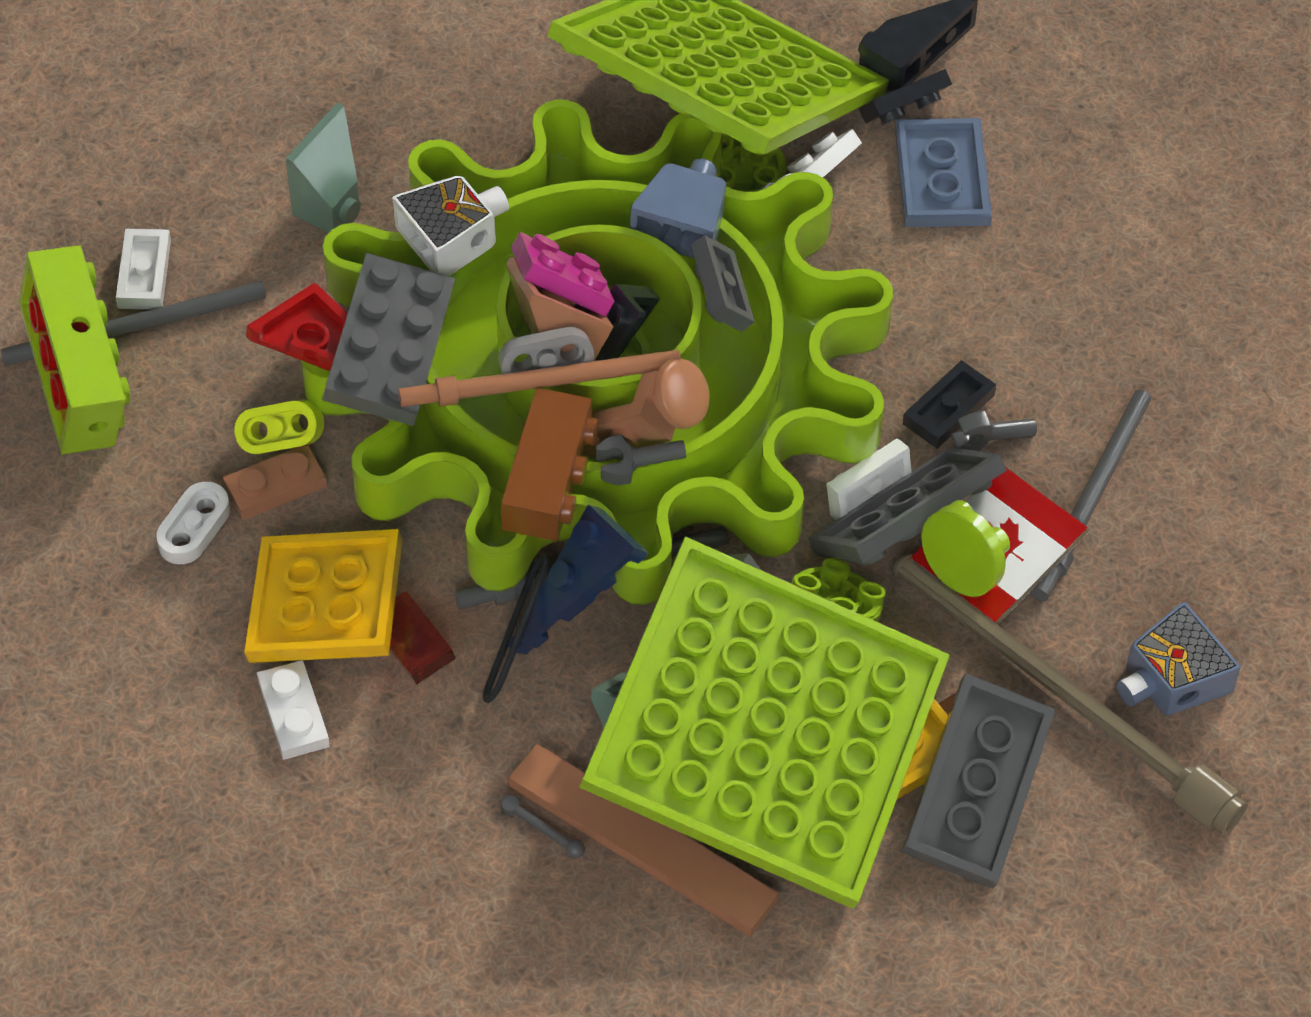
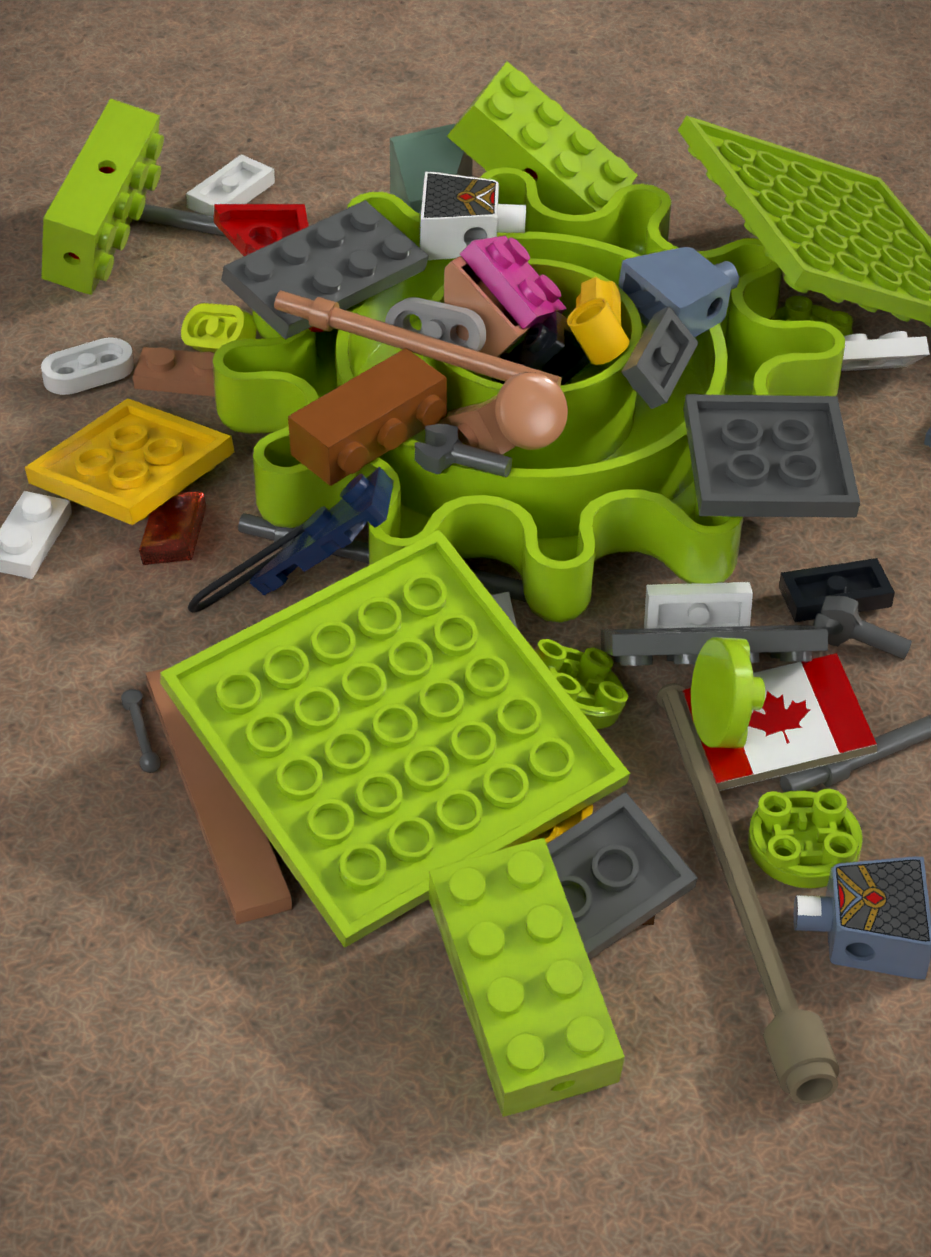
camera: 35 degrees right, 10 degrees down
(411, 98) = (526, 130): none -> lime brick
(652, 274) = (598, 321): none -> yellow piece
(868, 330) = (770, 456): none -> dark grey plate
(1005, 856) = (525, 977): none -> lime brick
(1081, 628) = (803, 836): none -> lime tile

